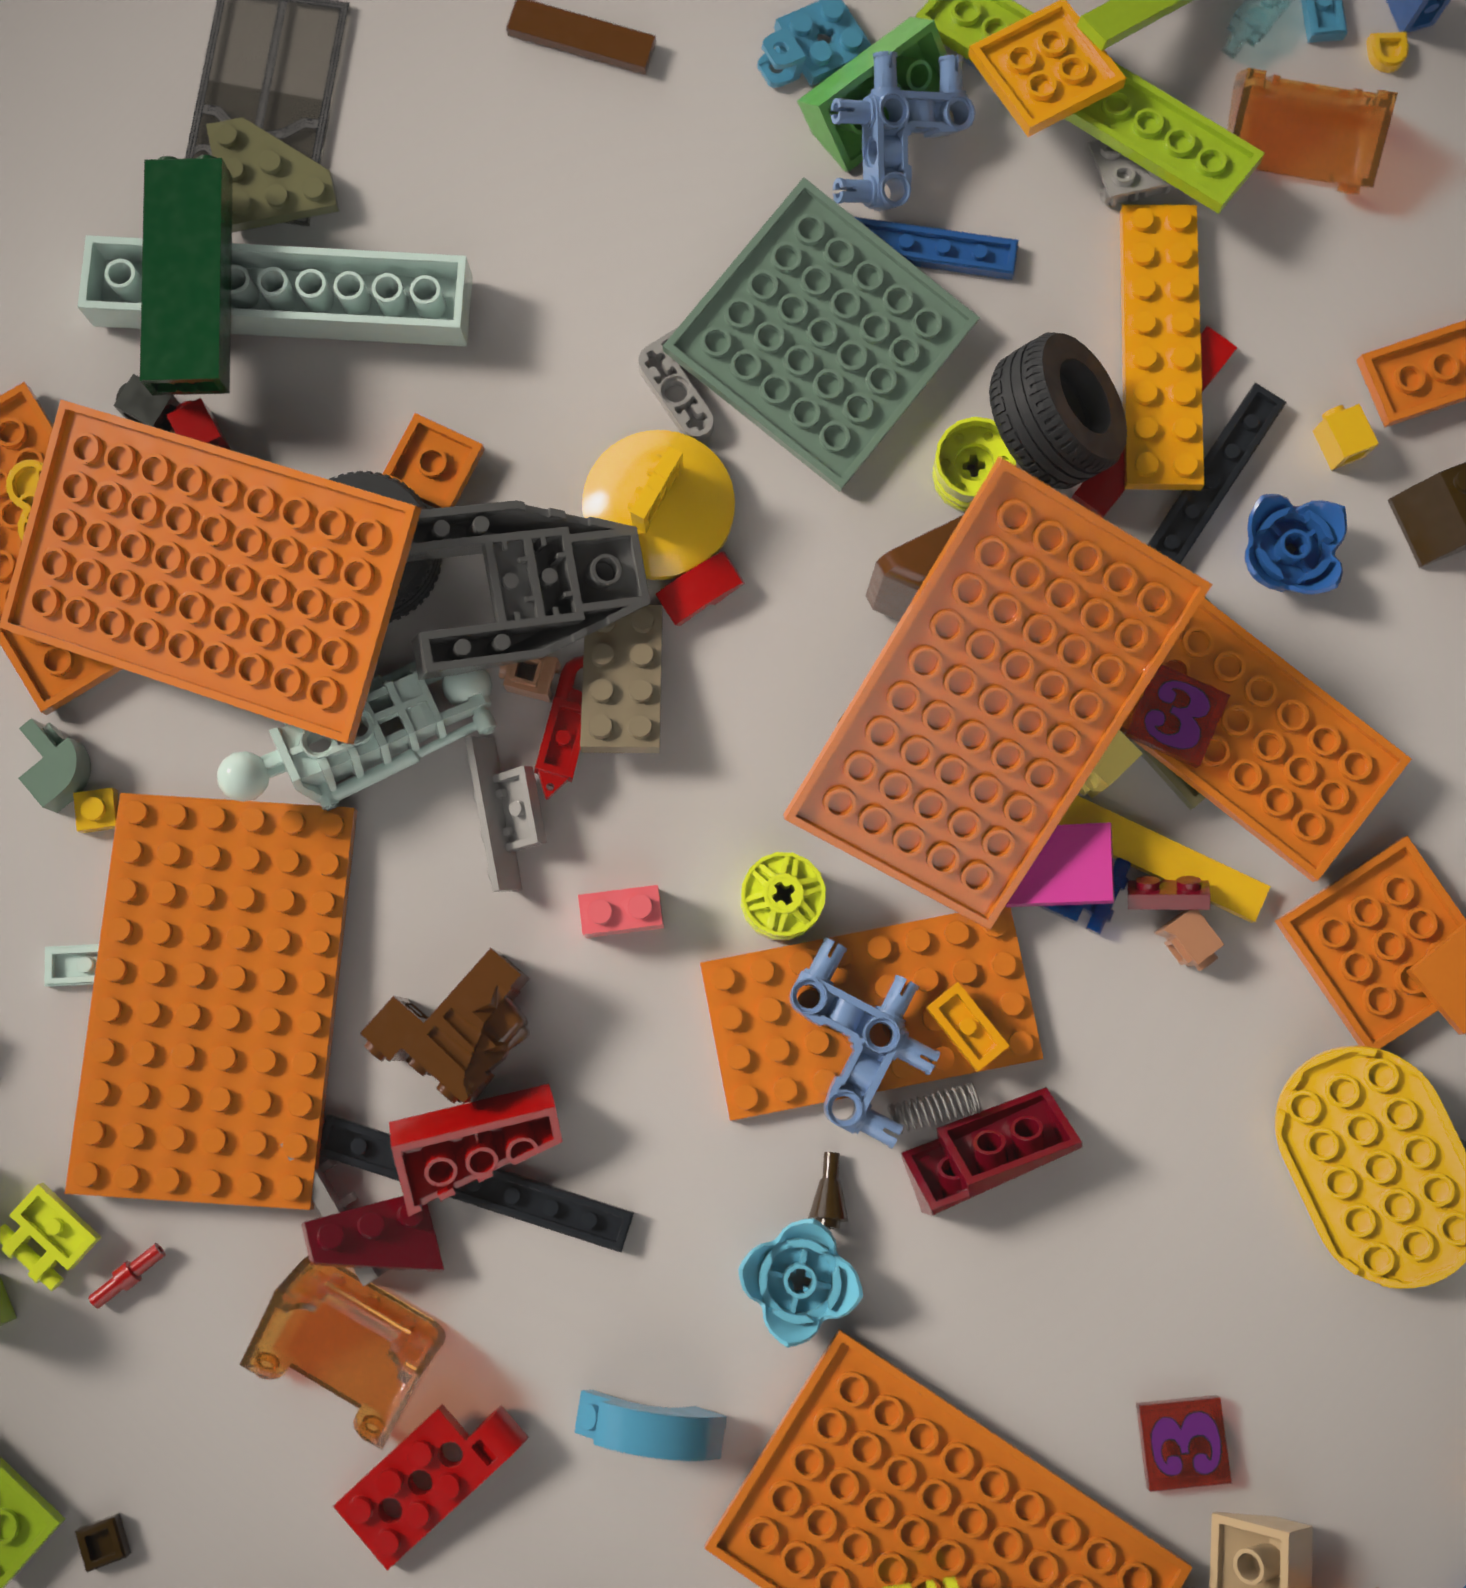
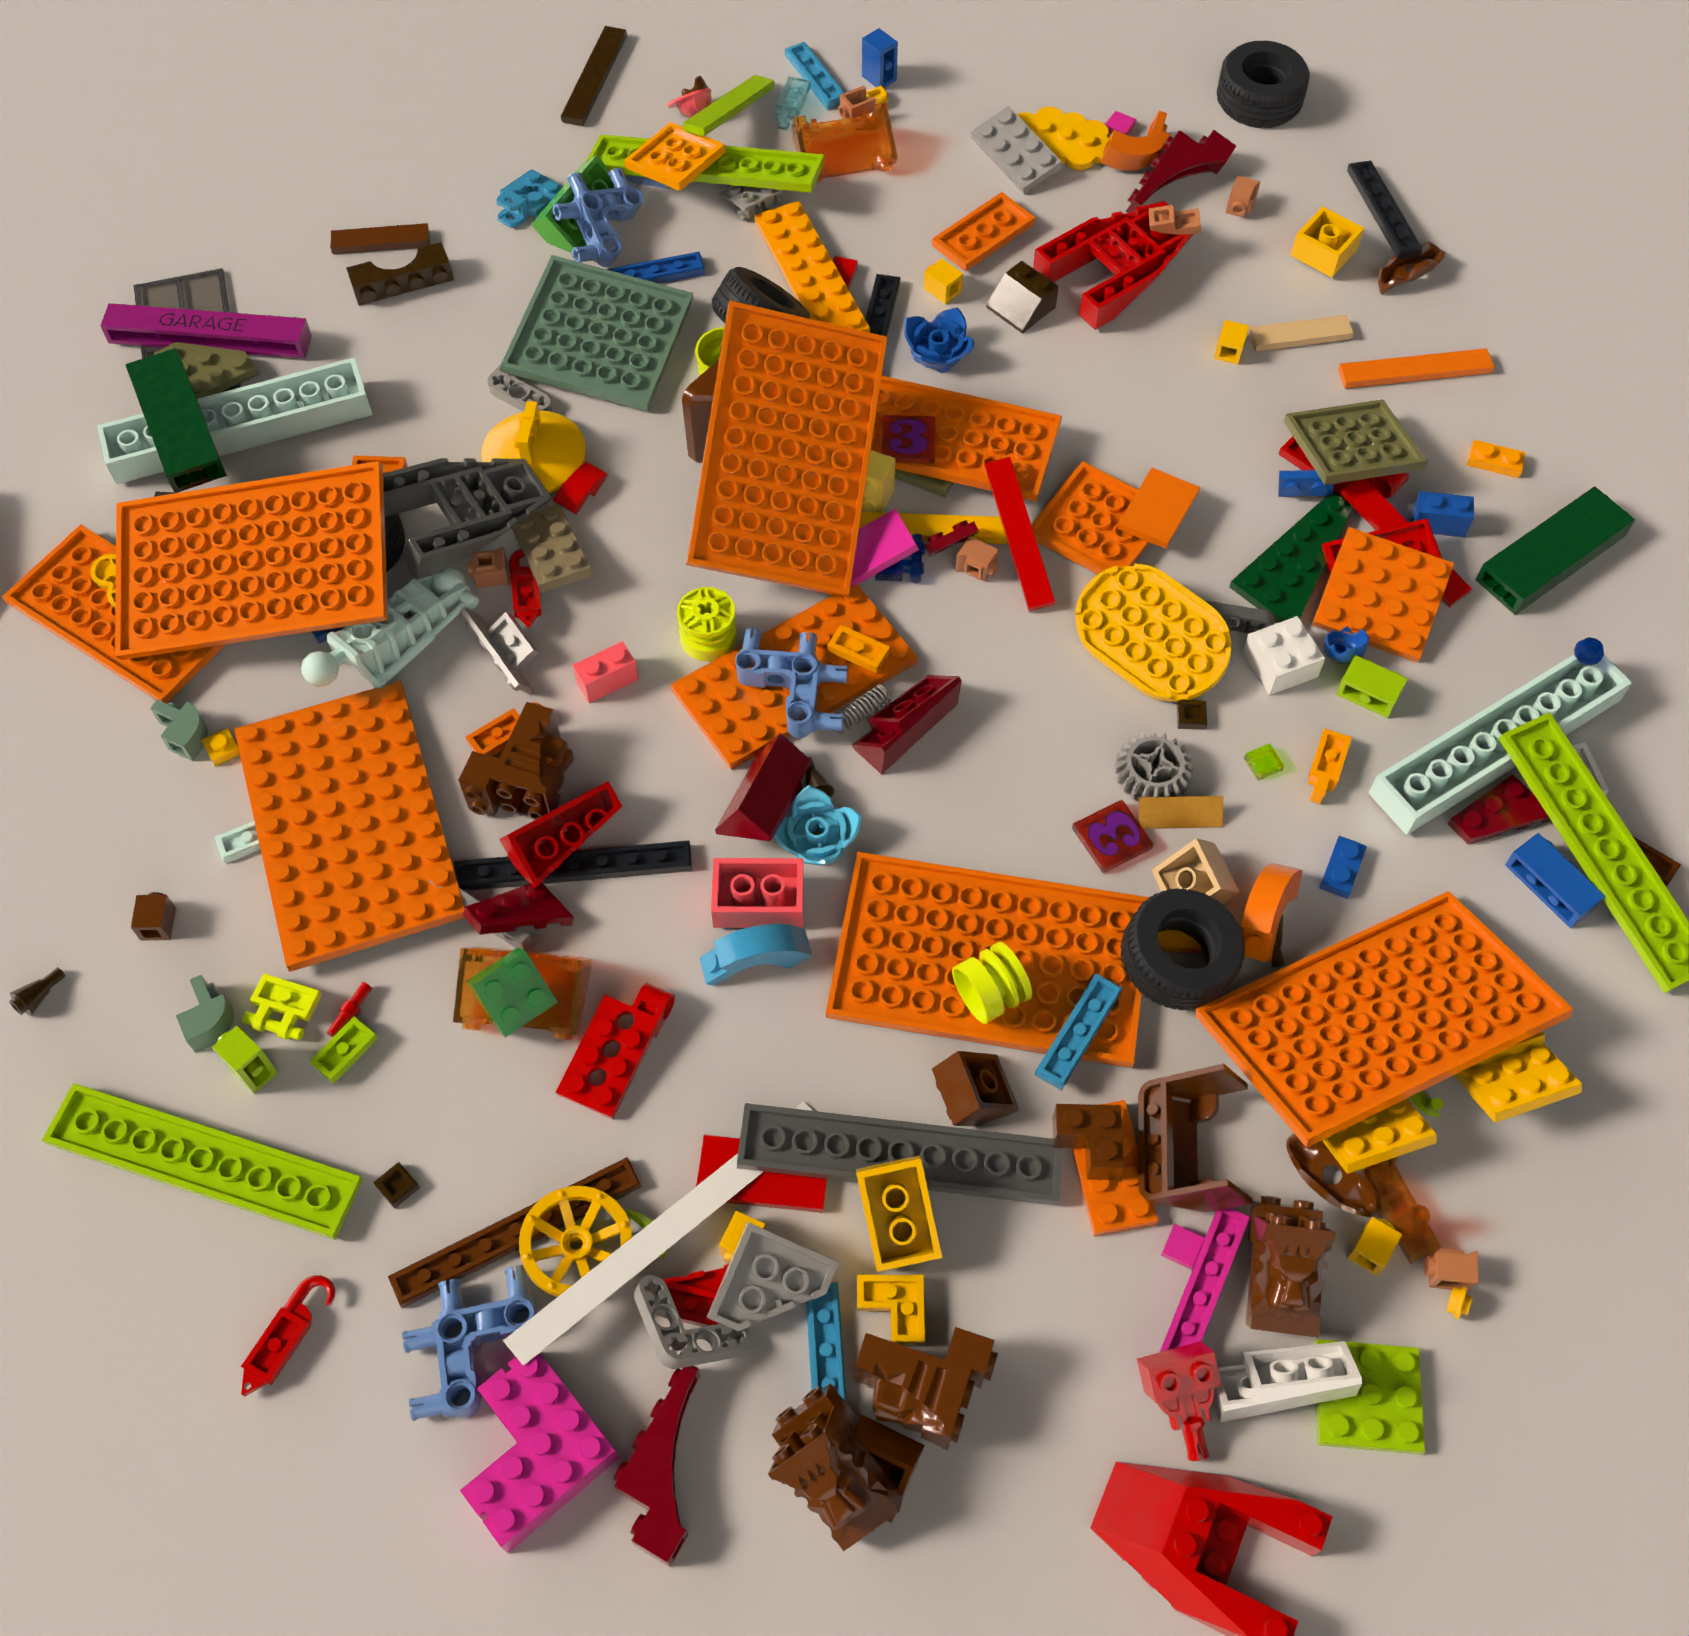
camera: 20 degrees left, 20 degrees down
(99, 1332) = (343, 1050): none -> lime plate
(291, 115) = (235, 331): none -> magenta brick
(321, 1363) = (511, 991): none -> green brick
(459, 943) = (495, 734): none -> orange plate
(626, 122) = (426, 270): none -> dark brown arch
(688, 1343) = (757, 892): none -> coral brick
(752, 1199) = (766, 792): none -> dark red slope
(1265, 928) = (1019, 534): none -> red tile
(1271, 1382) = (1138, 759): none -> light grey gear
(1289, 1450) = (1181, 812): none -> pearl gold sticker
(1354, 49) = (854, 102): none -> nougat window
(1373, 1303) = (1191, 714): none -> dark brown tile
(1436, 1417) = (1264, 761): none -> clear neon green tile

